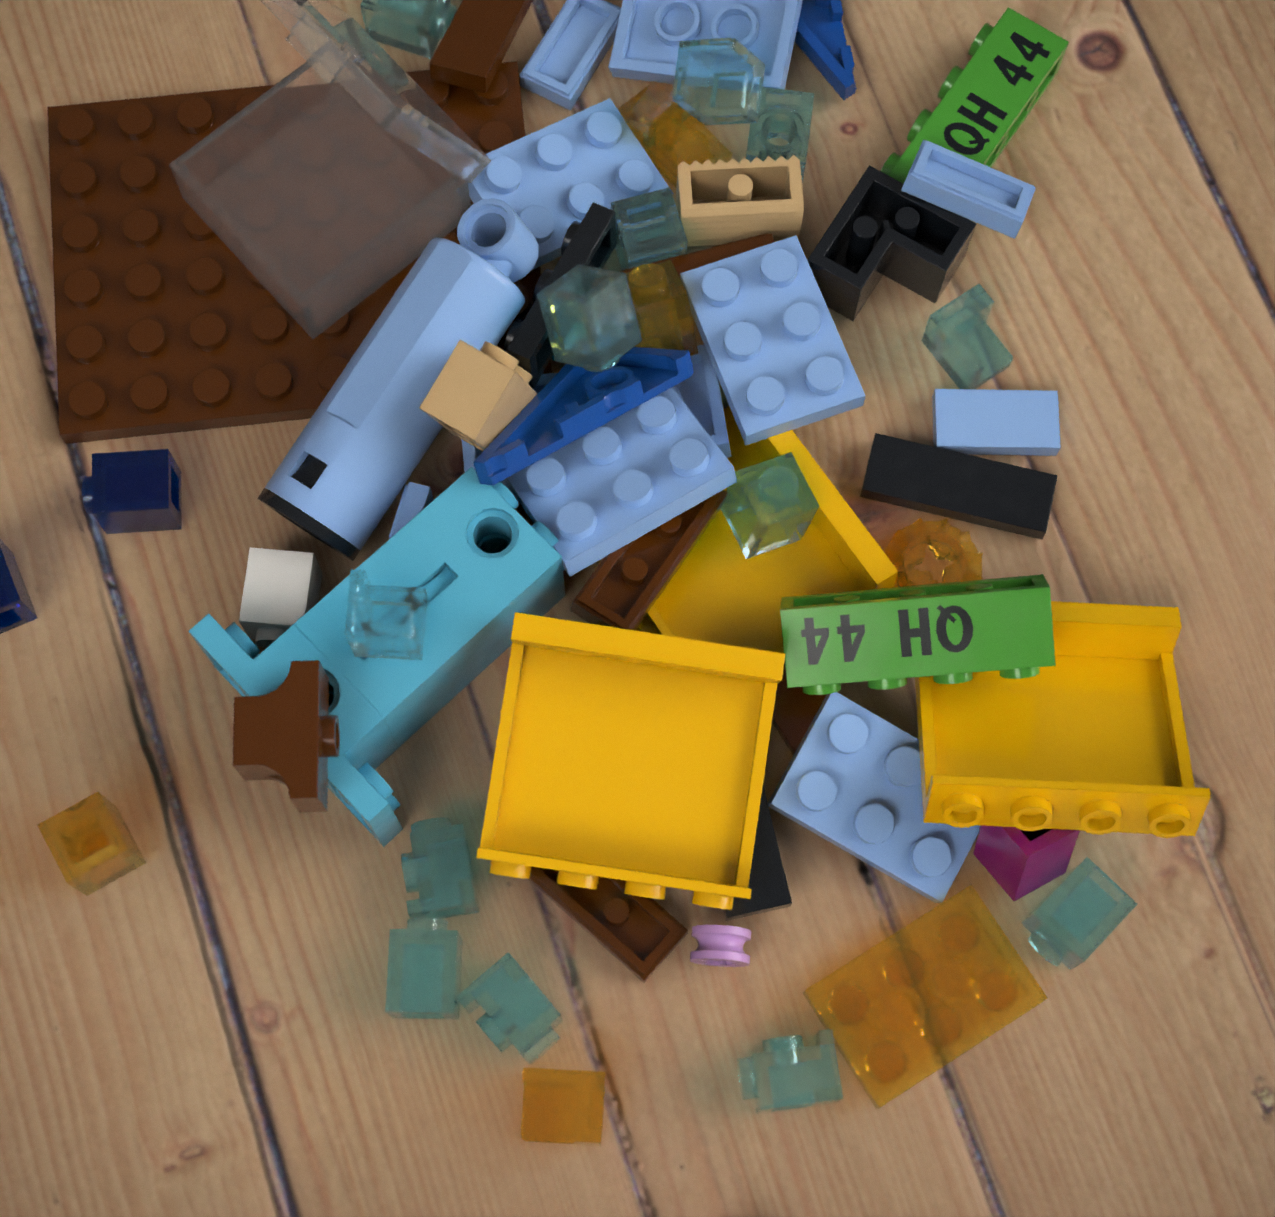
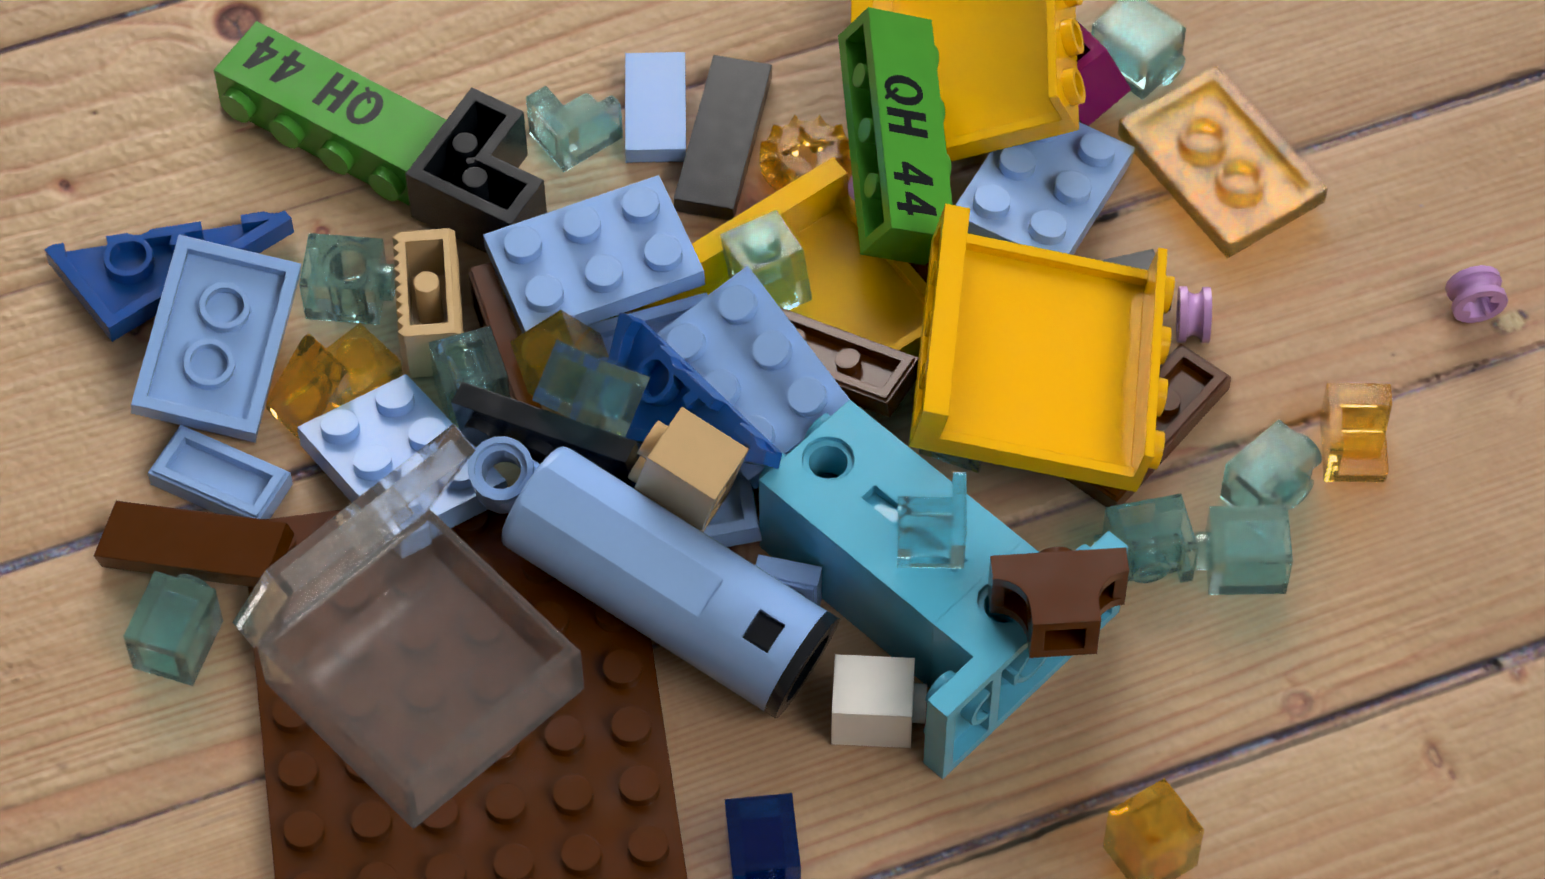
camera: 90 degrees left, 15 degrees down
(718, 81) = (307, 301): clear light blue panel -> none
(791, 1074) = (1304, 253): clear light blue brick -> none
(969, 189) = (432, 94): light blue tile -> none

